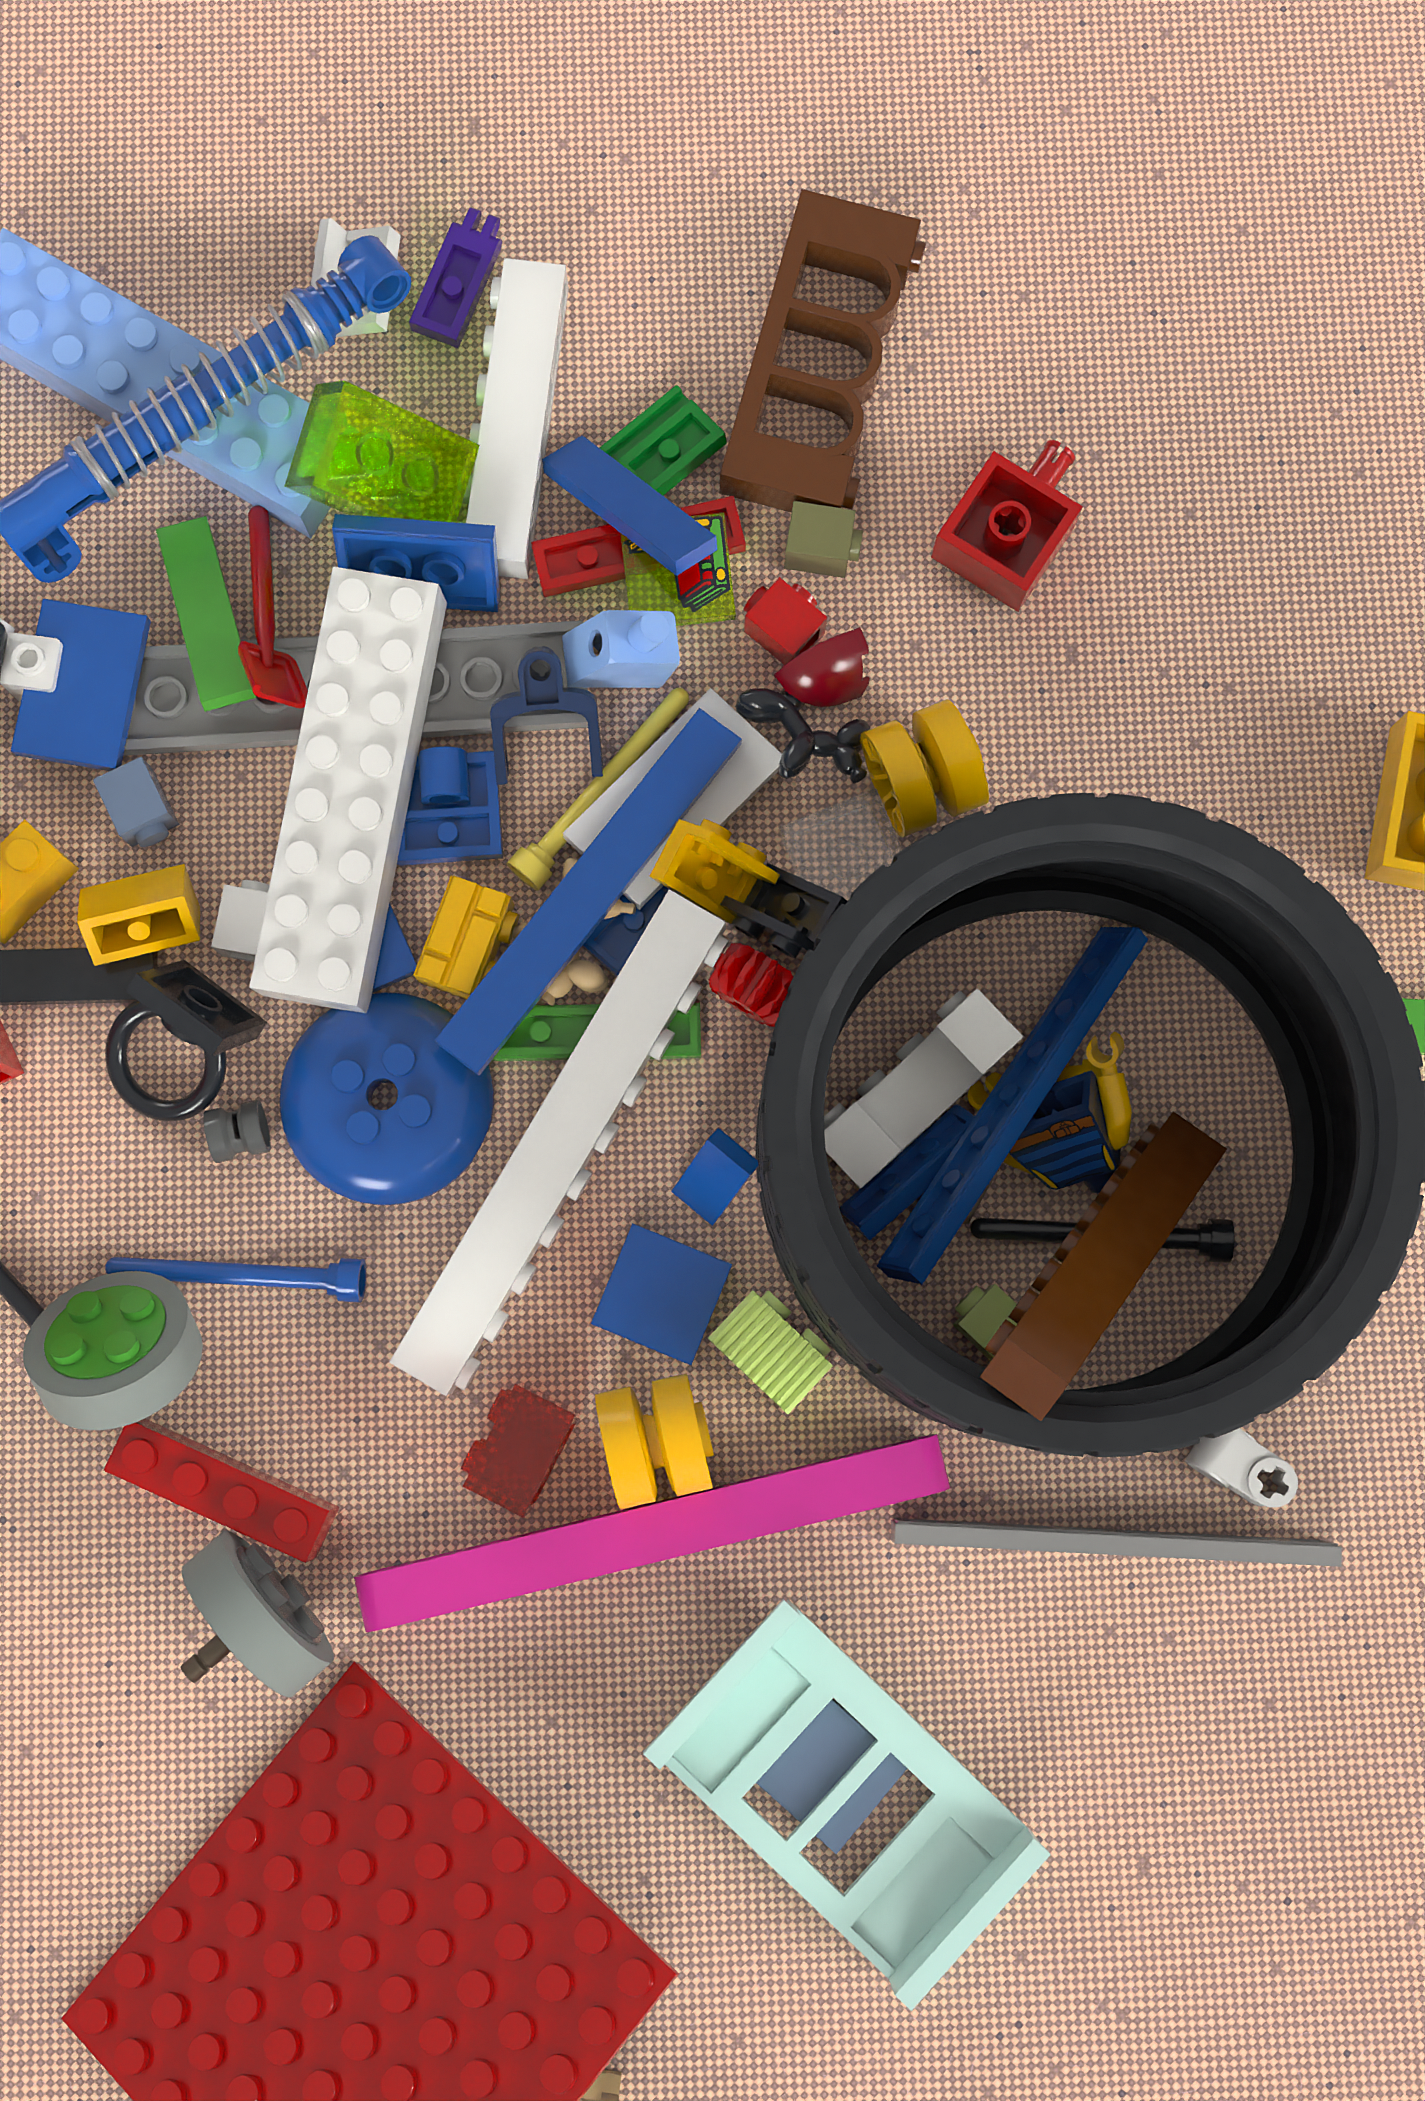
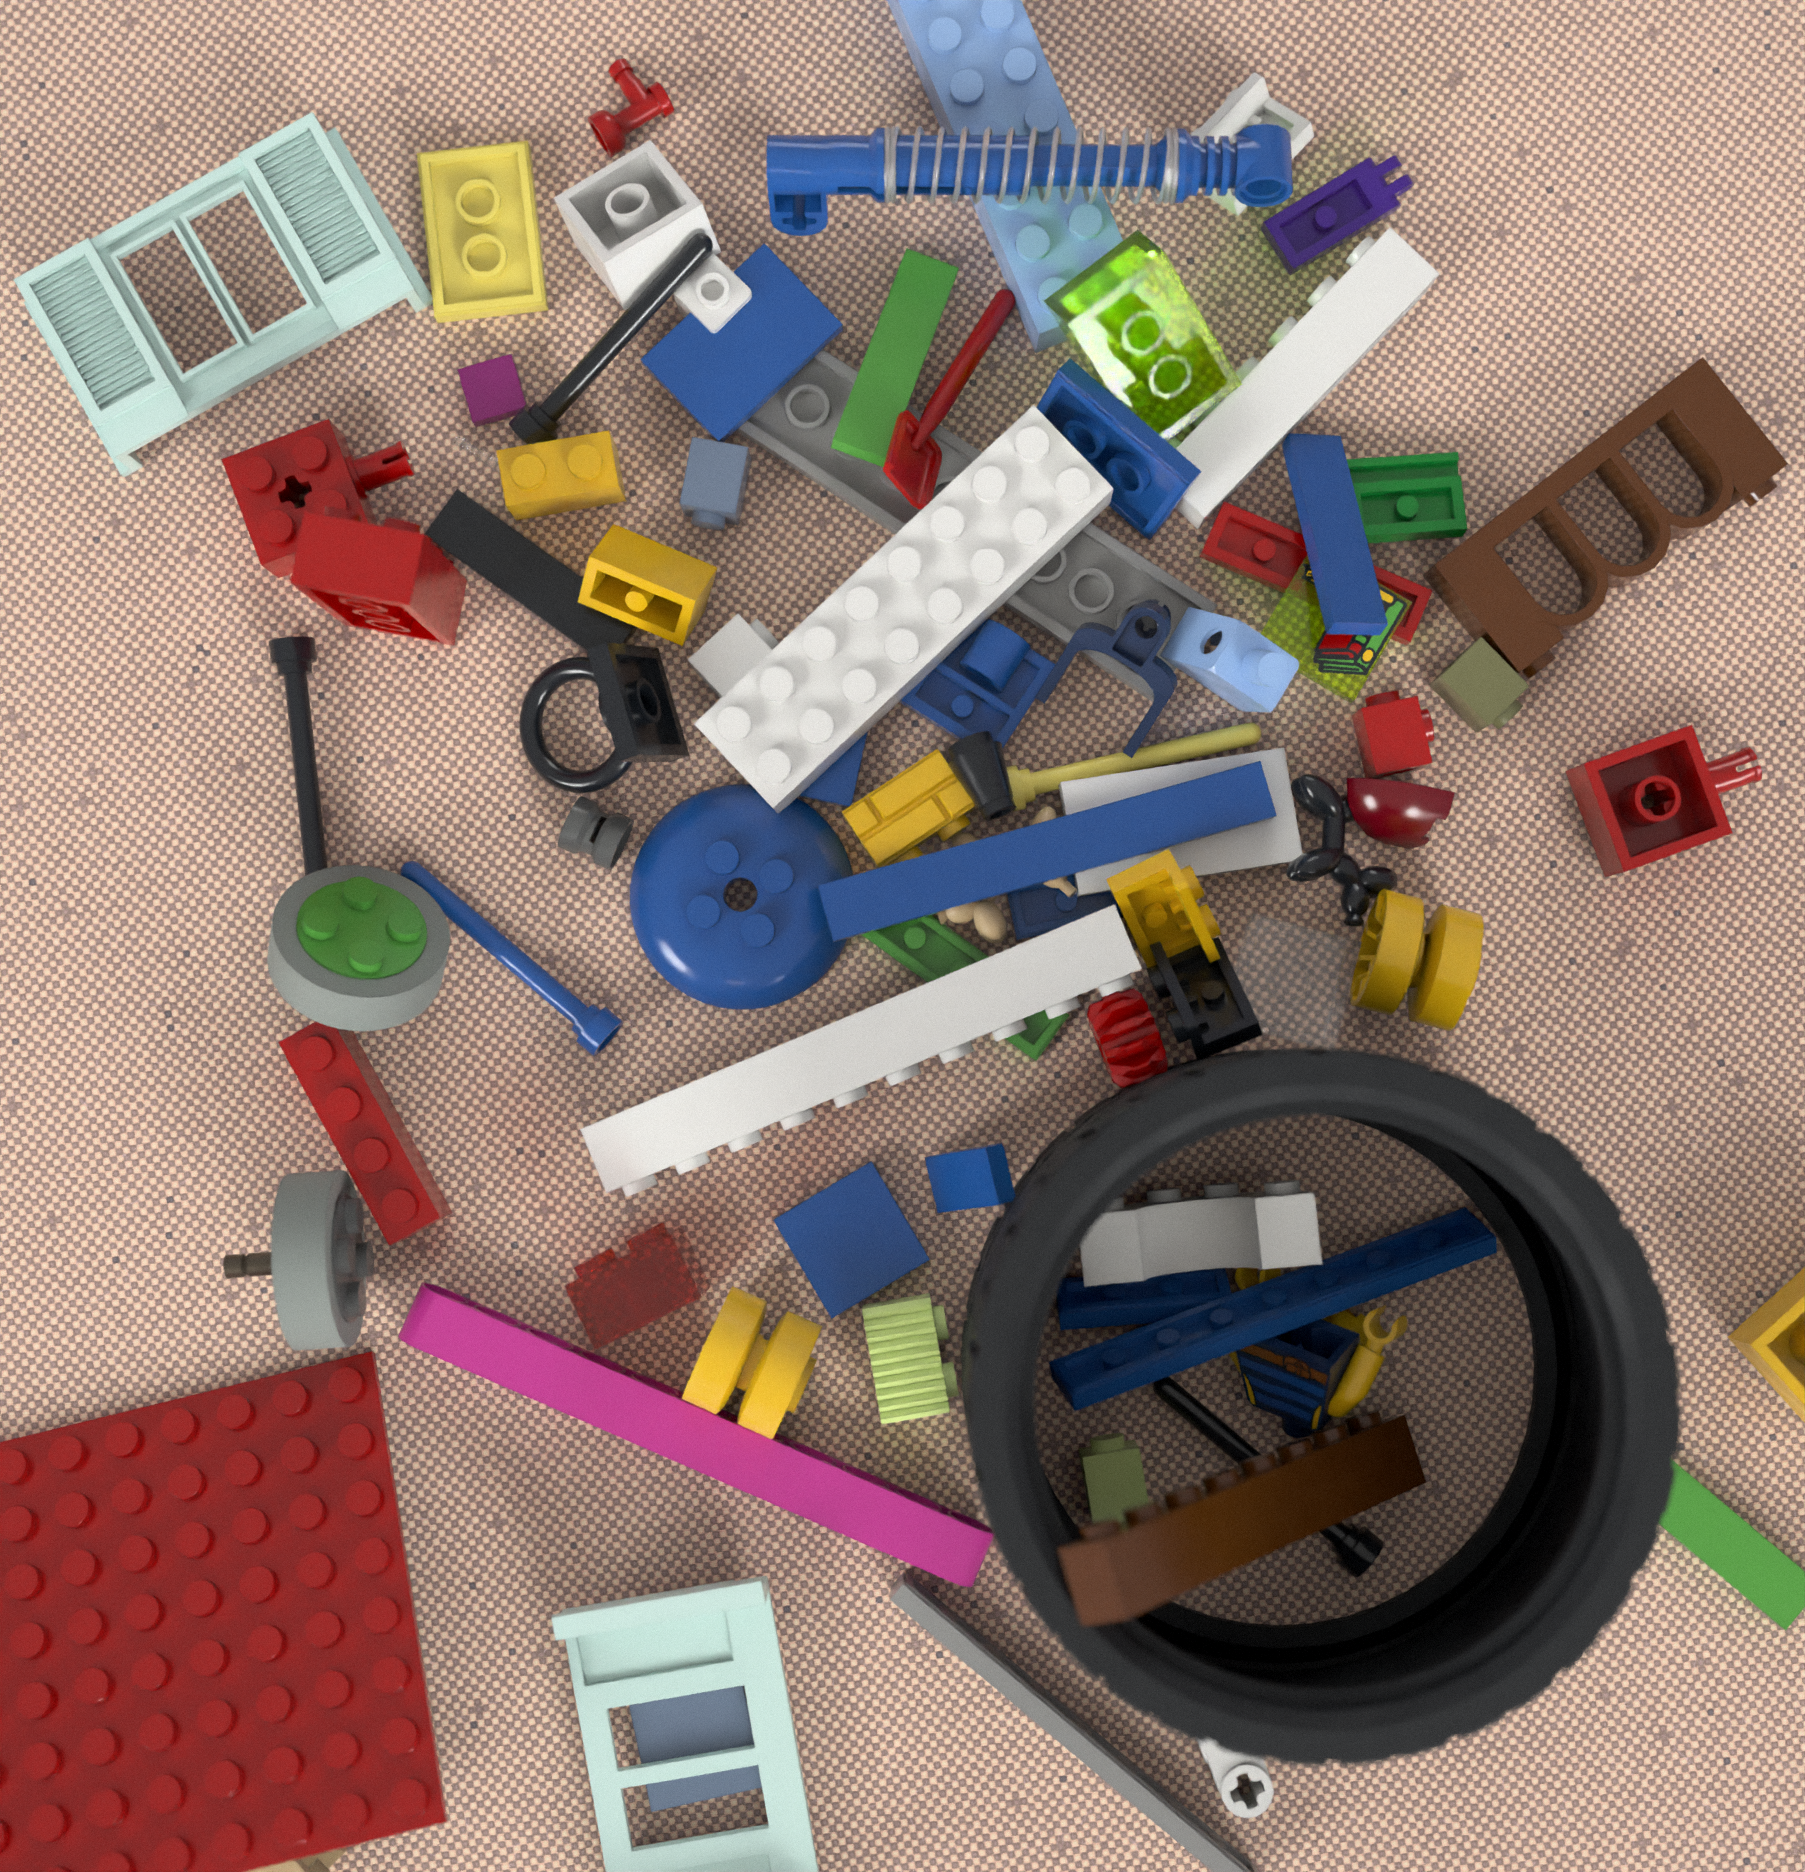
camera: 40 degrees right, 5 degrees up
(499, 867) = (983, 773): none -> black cone

